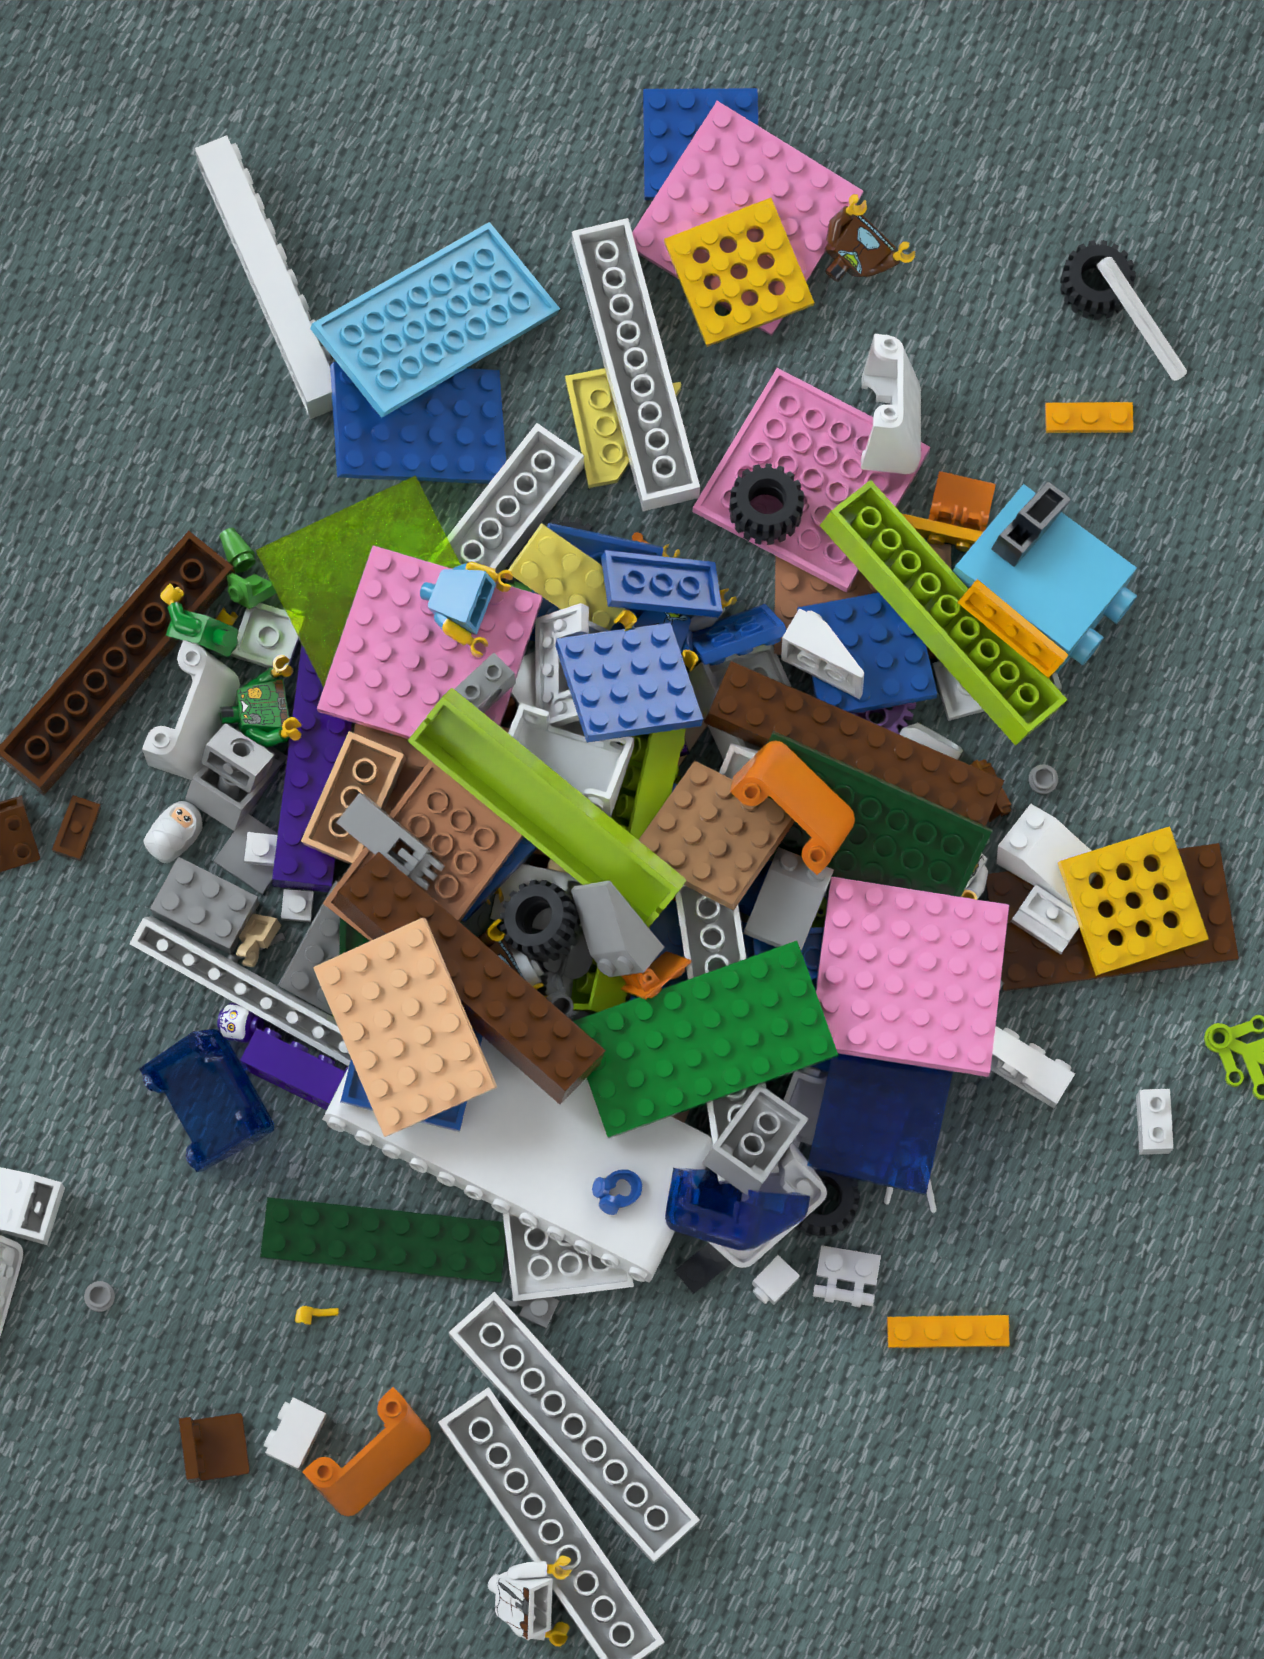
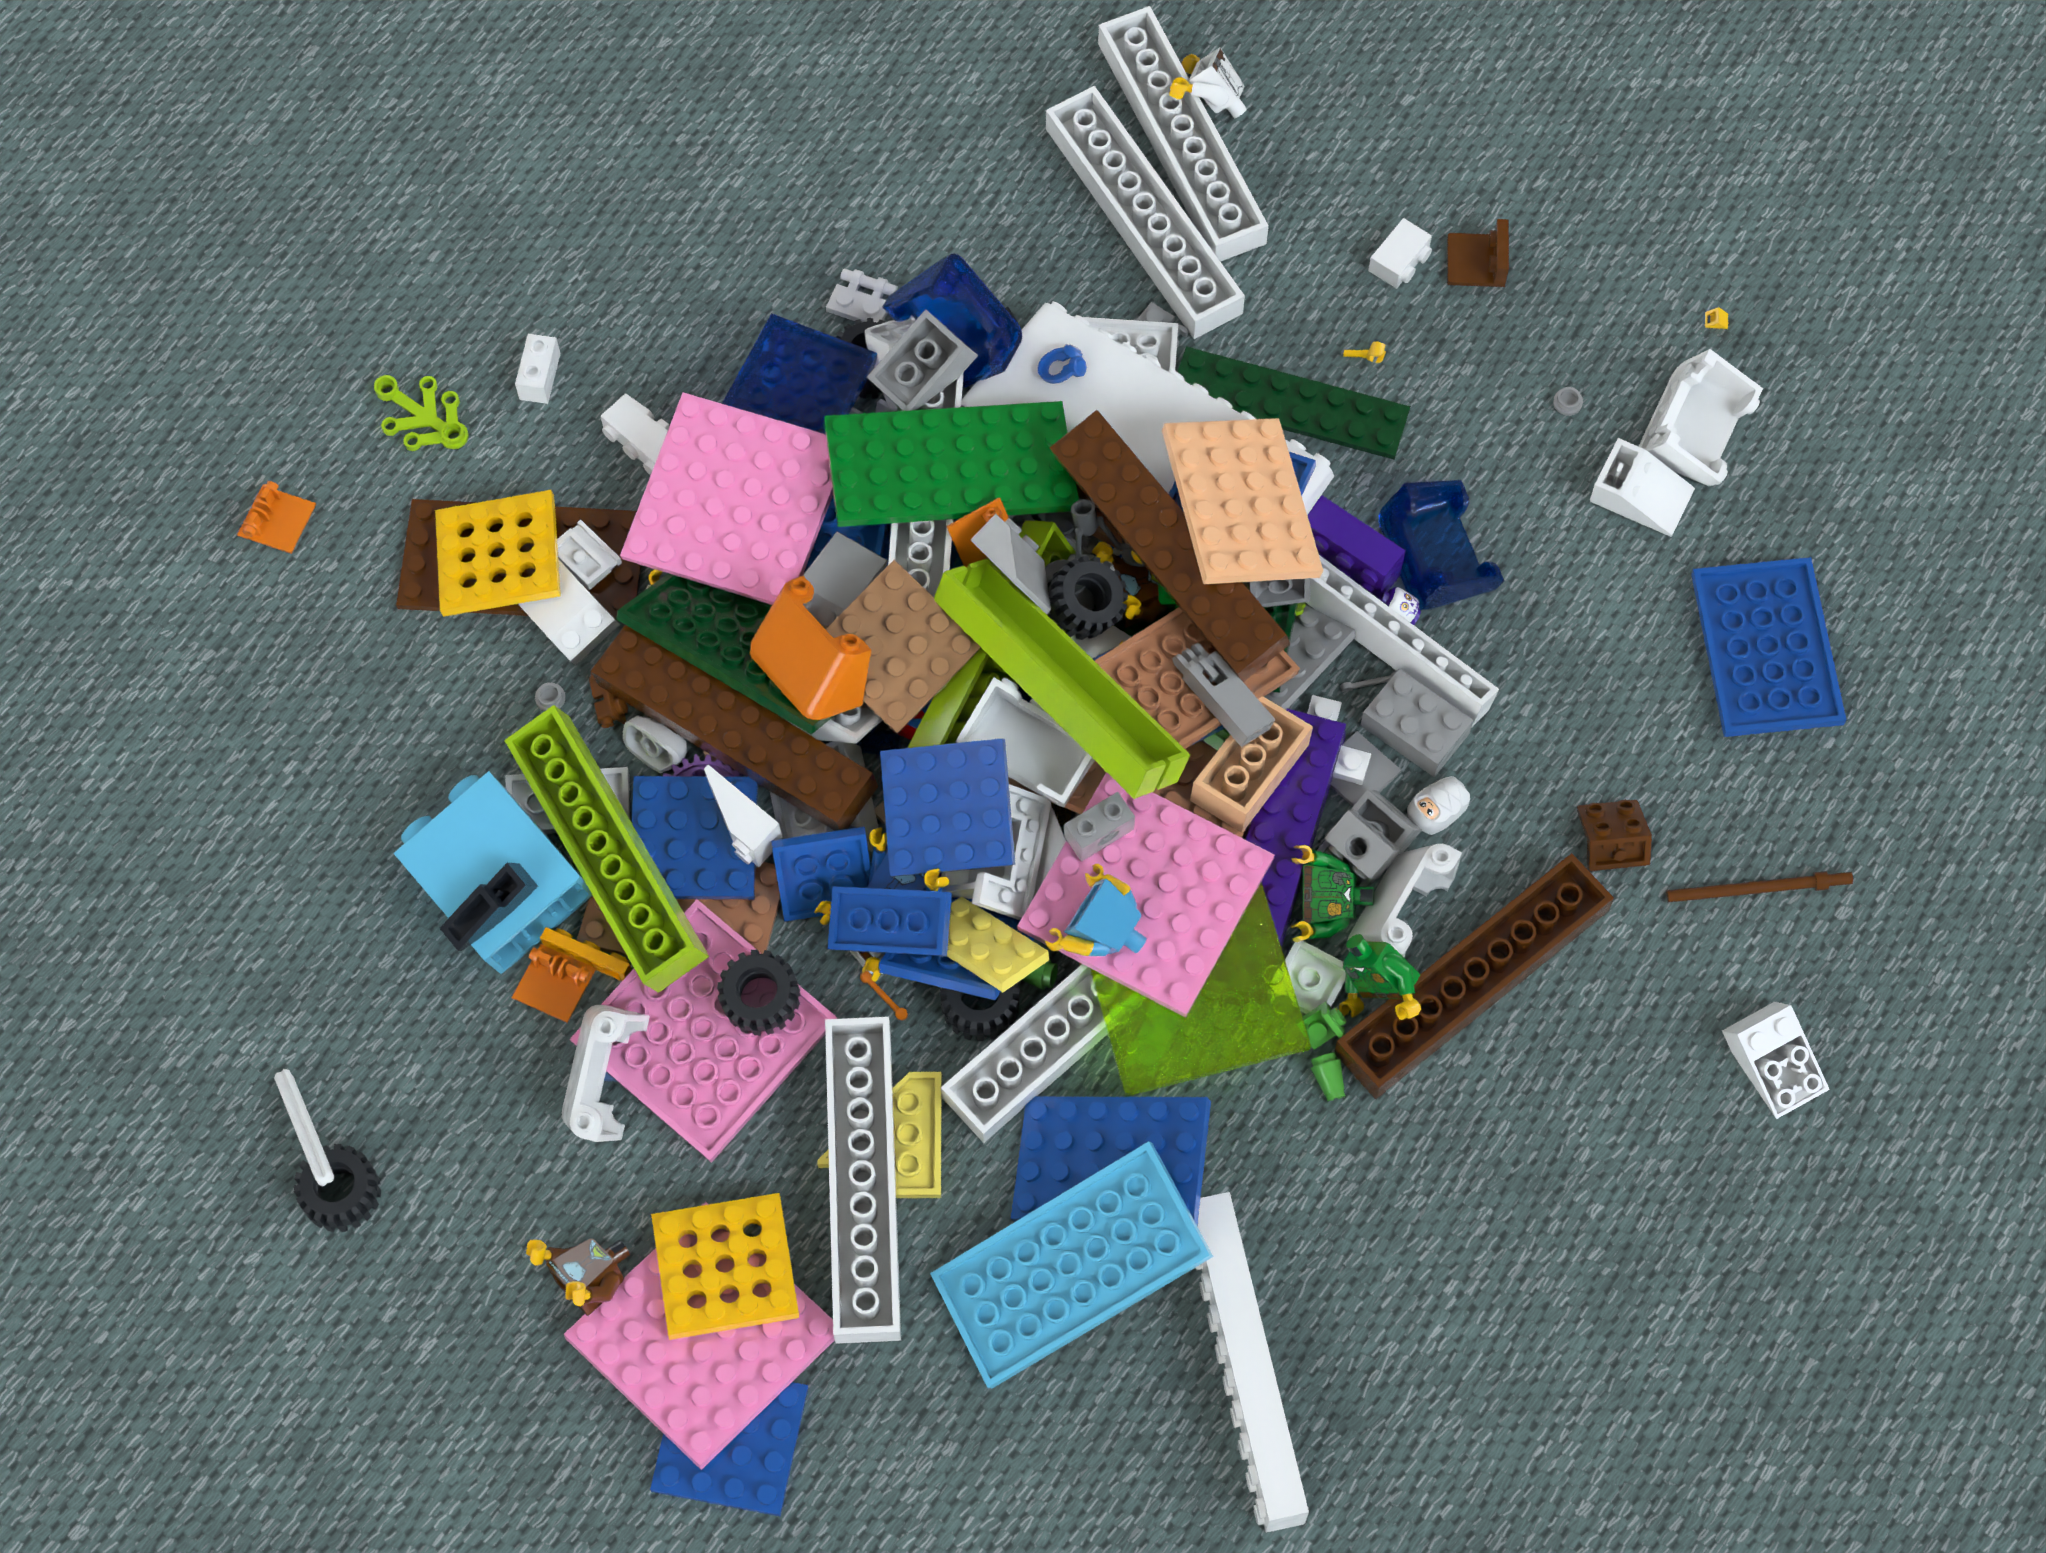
camera: 165 degrees left, 10 degrees down
(76, 828) = (1536, 825): reddish brown plate -> none
(256, 934) = (1366, 684): tan plate -> none
(377, 1463) = (1371, 202): orange windscreen -> none
(948, 1331) = (780, 238): light orange plate -> none
(1013, 628) = (539, 805): light orange plate -> none
(1089, 417) = (392, 1049): light orange plate -> none

